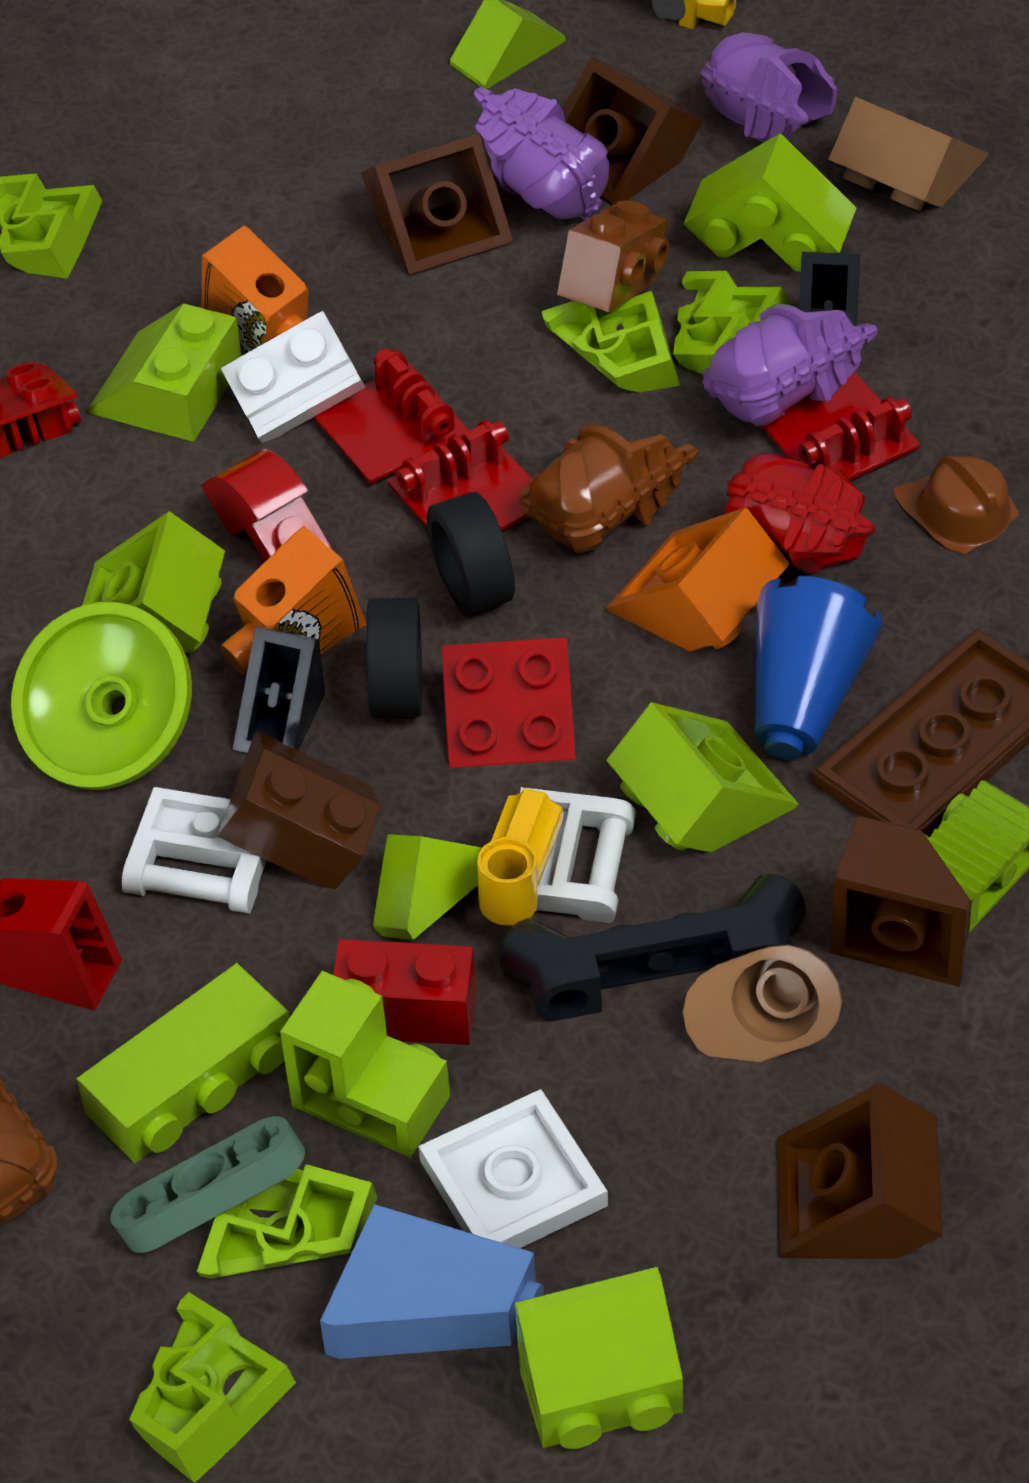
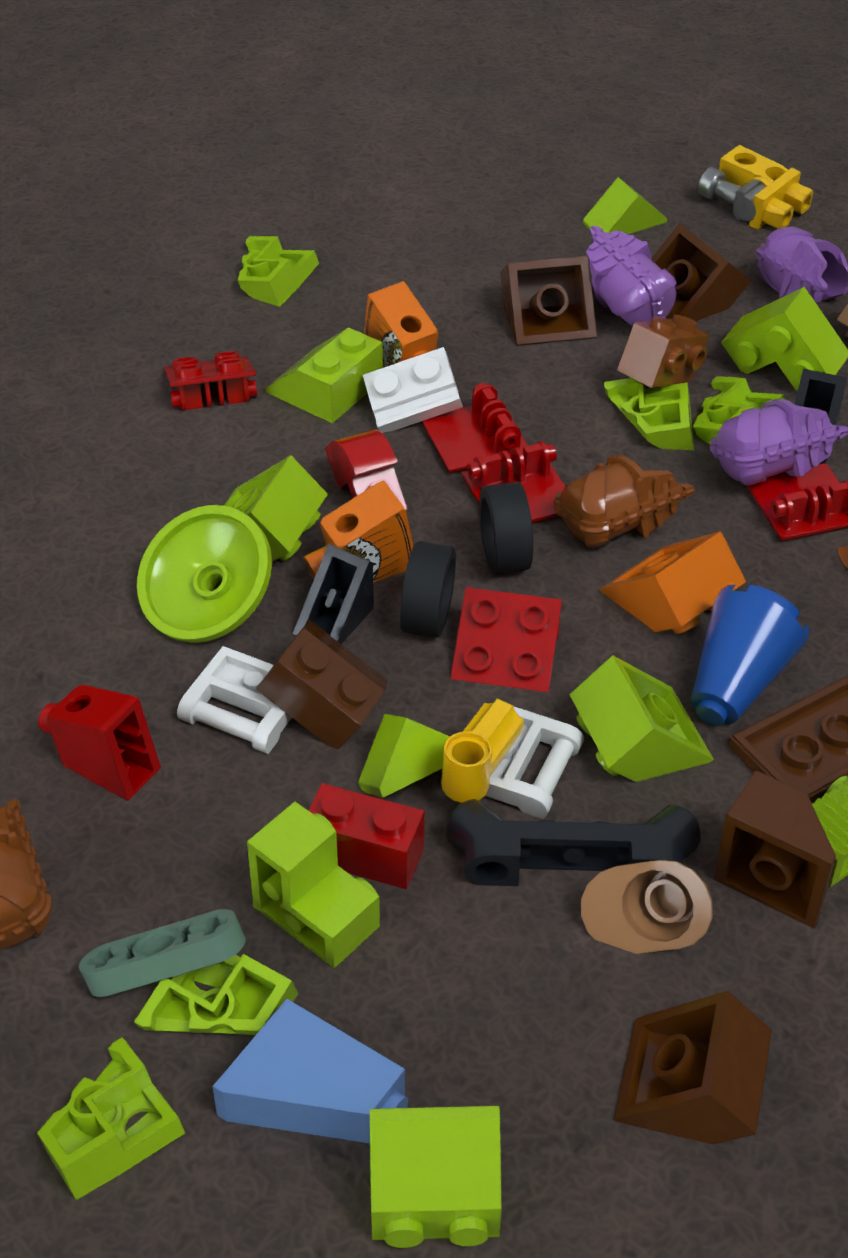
camera: 10 degrees right, 5 degrees down
(185, 1064) = (175, 855): lime brick -> none
(514, 1173) = (411, 1000): white plate -> none
(803, 510) = (766, 546): red helmet -> none

